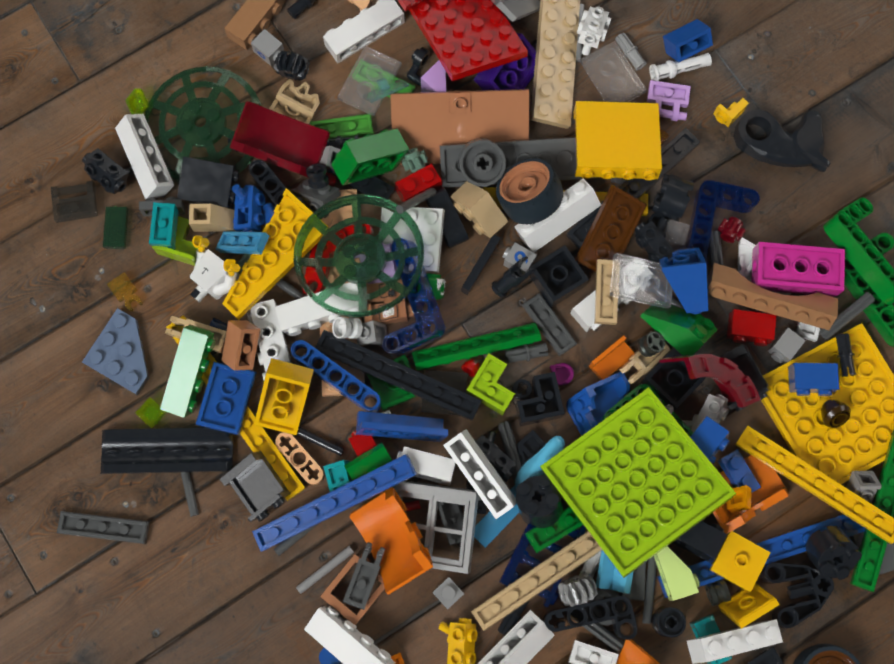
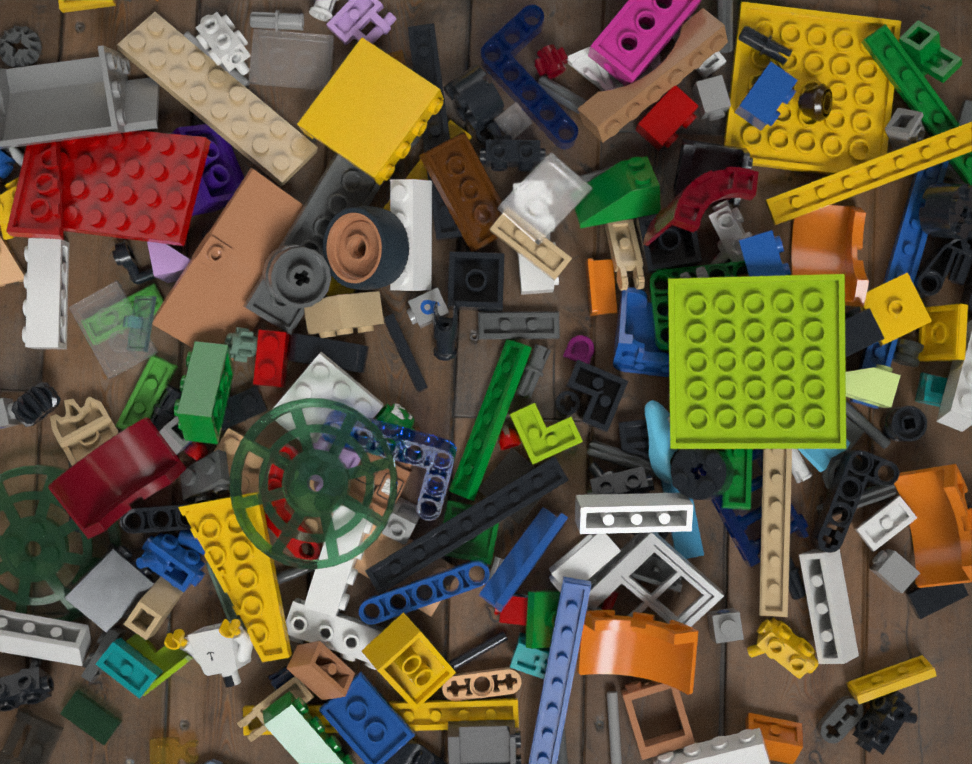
camera: 55 degrees left, 10 degrees up
(242, 242) = (207, 594): dark azure tile -> none
(317, 176) = (187, 464): black wheel -> none
(347, 327) = (380, 550): white wheel -> none
(363, 578) = (656, 705): dark grey hinge -> none
(415, 200) = (292, 378): dark grey bar -> none
(577, 590) = (813, 494): light grey gear -> none
(656, 344) = (624, 235): pearl dark grey wheel -> none
(688, 278) = (575, 149): blue slope -> none
(738, 471) = (807, 243): blue plate -> none
(741, 501) = (834, 262): light orange plate -> none

